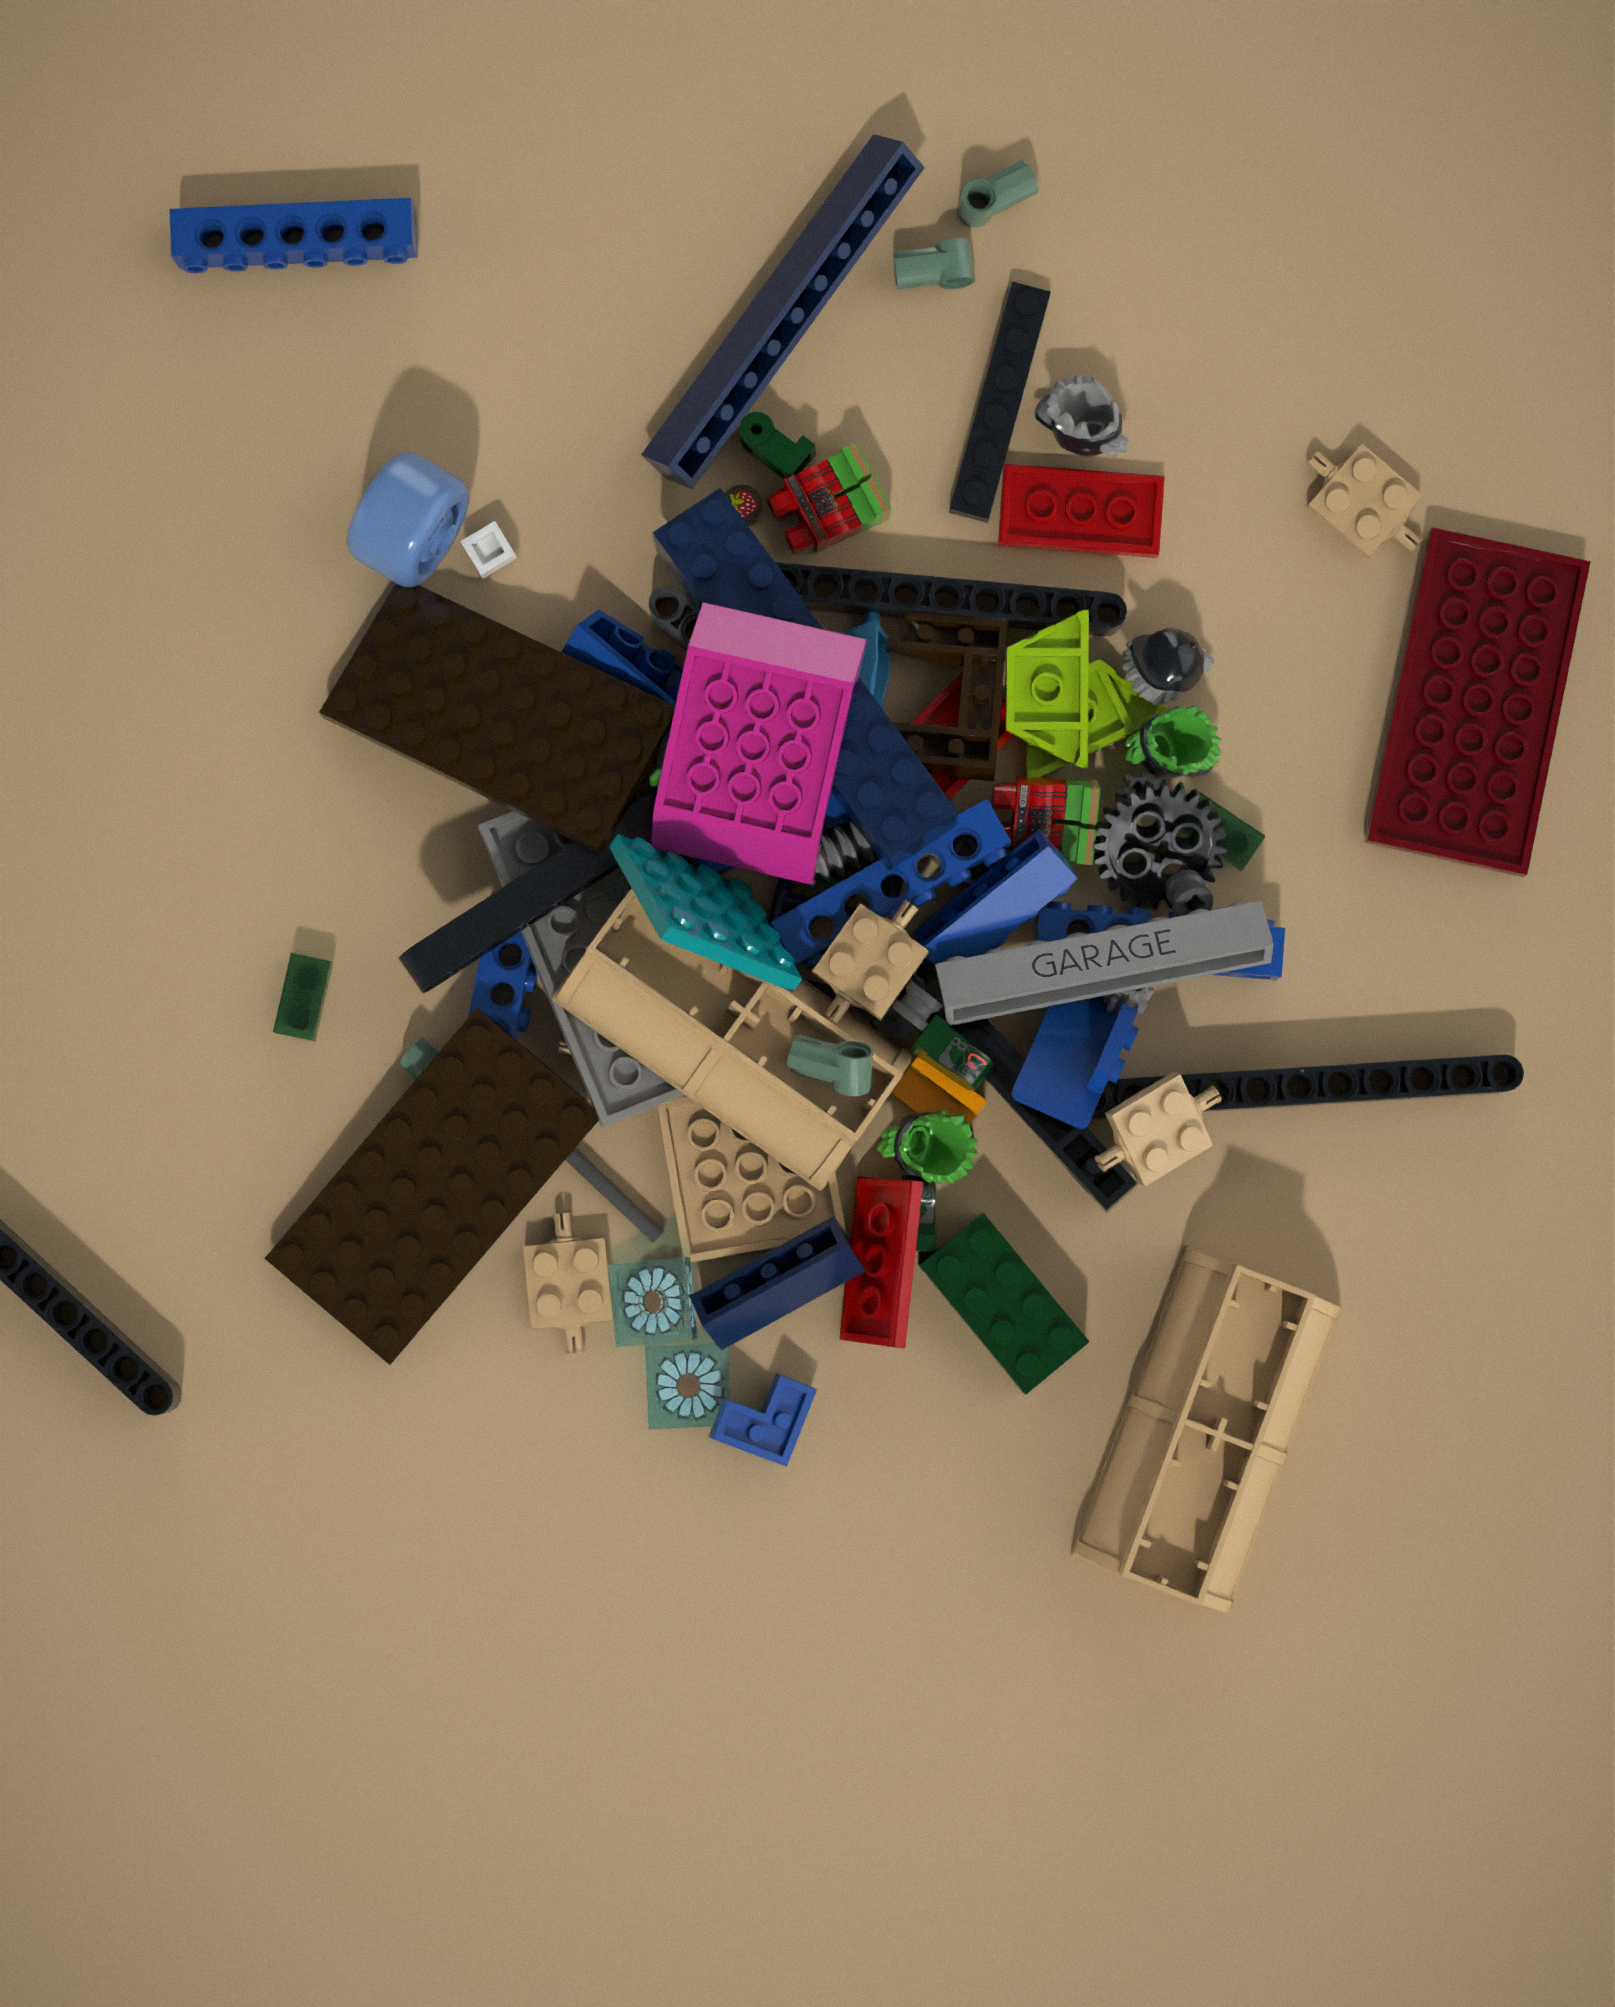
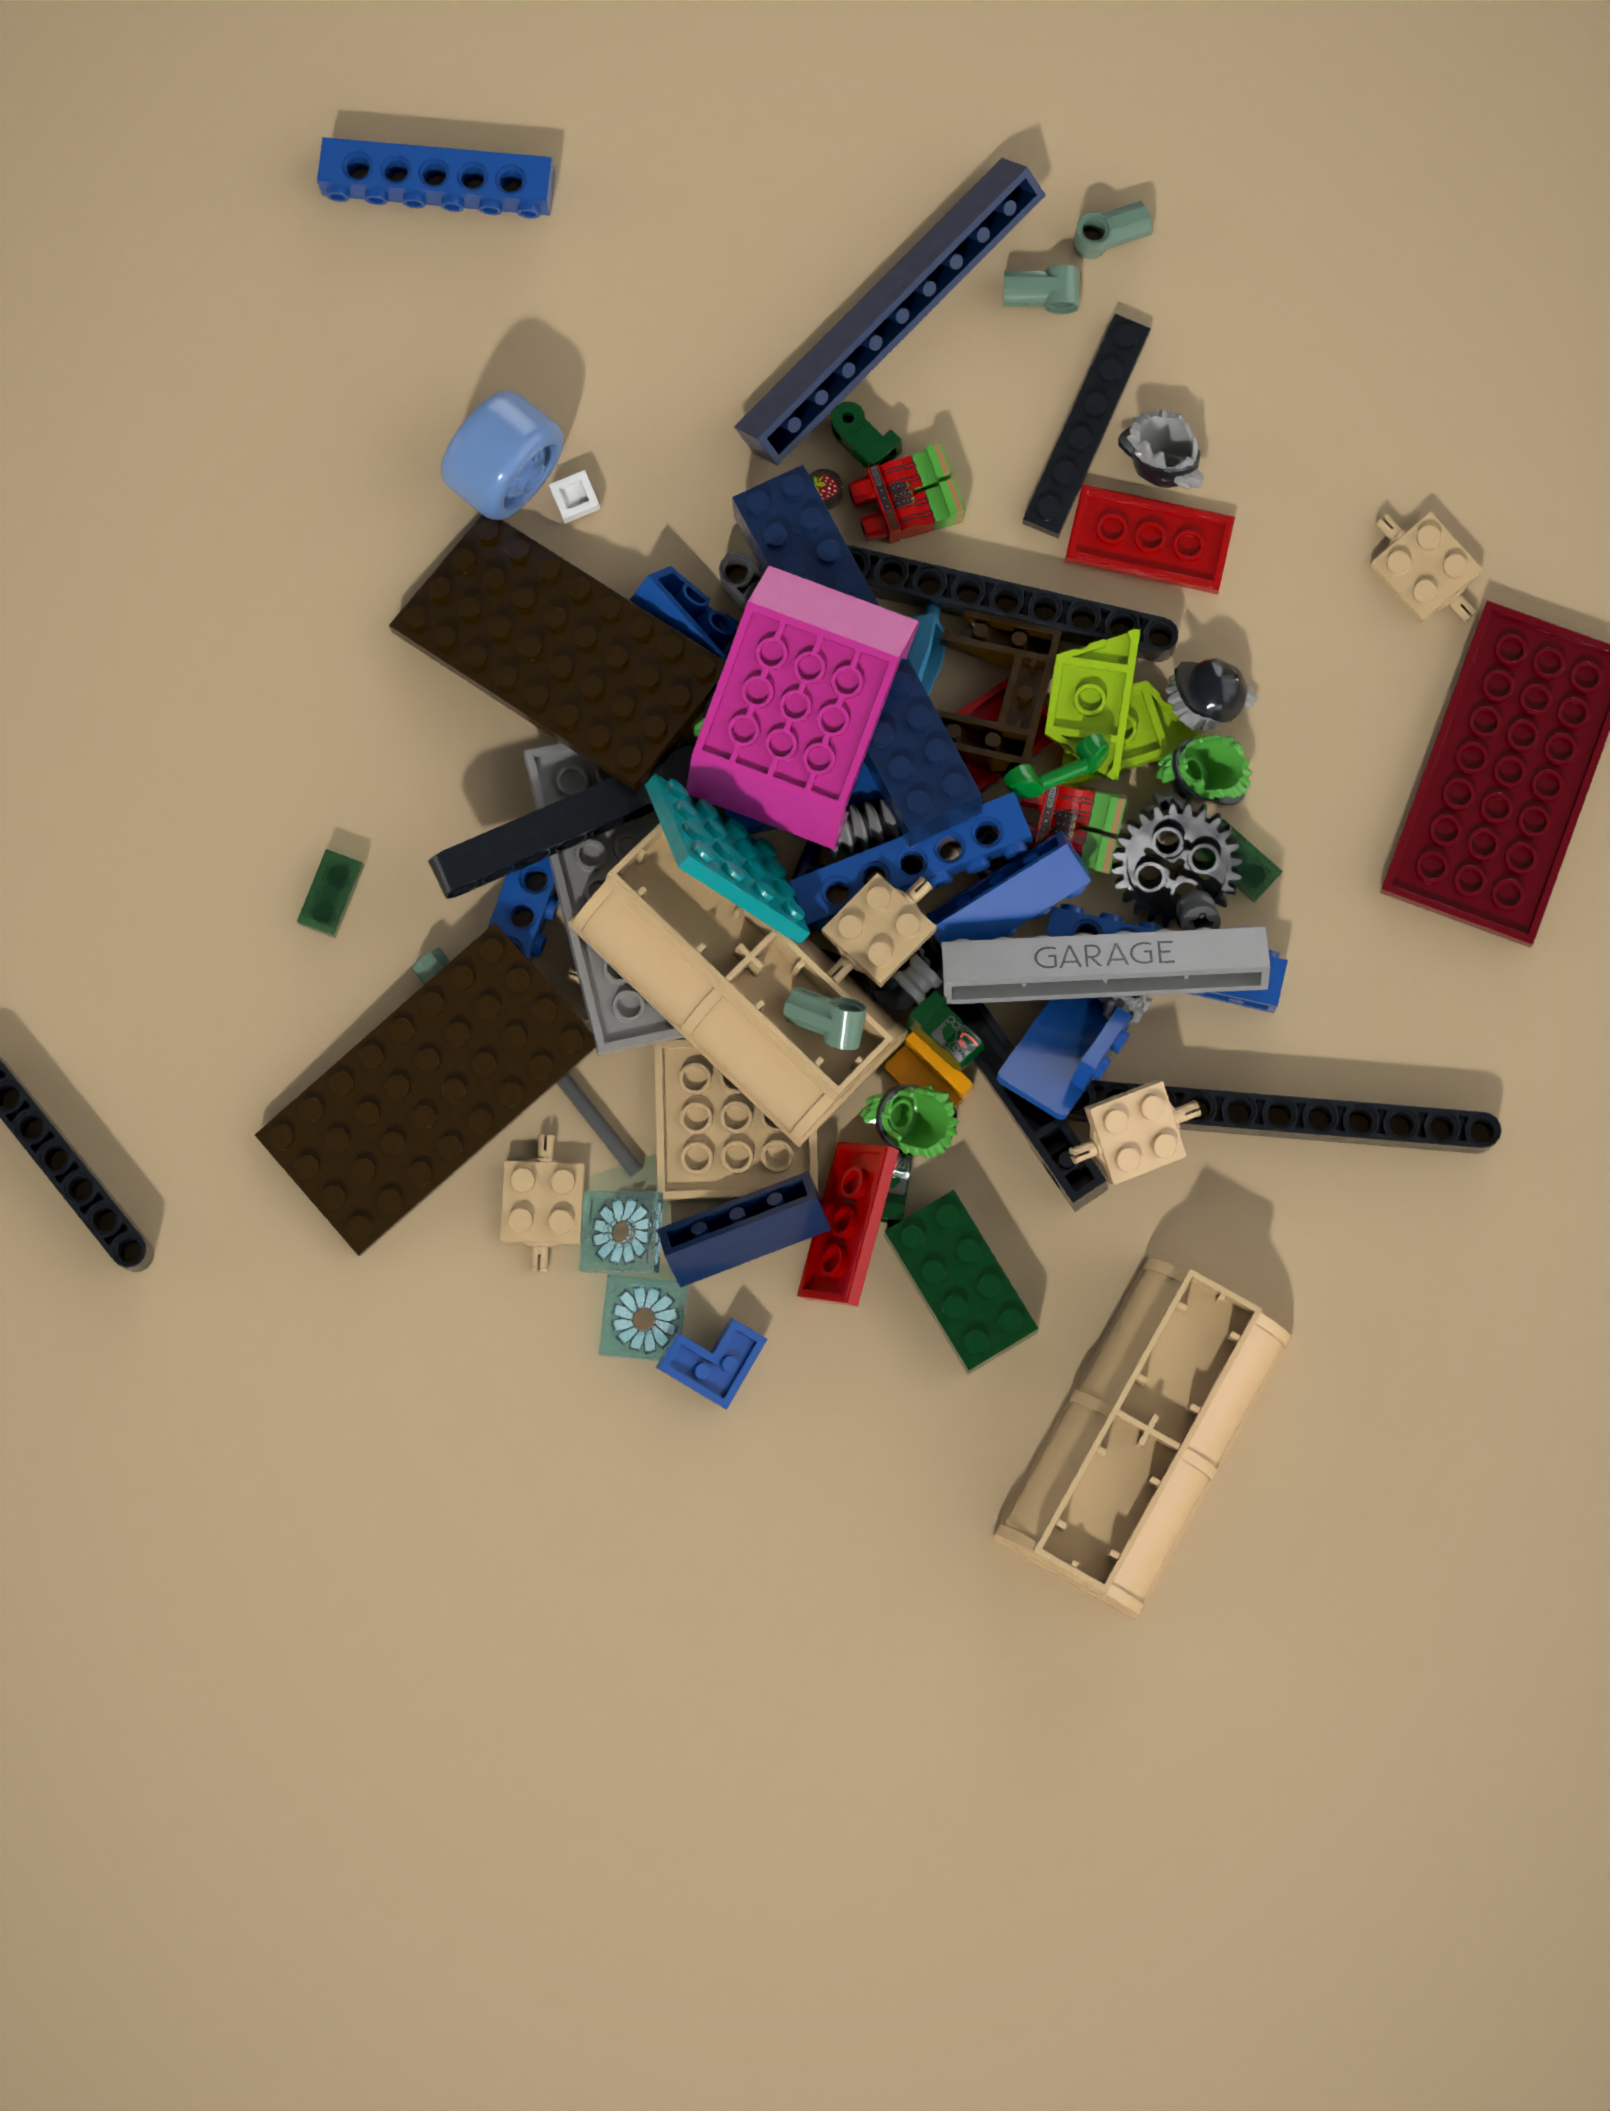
camera: 15 degrees right, 5 degrees down
(997, 787) = (1026, 784): none -> green bar

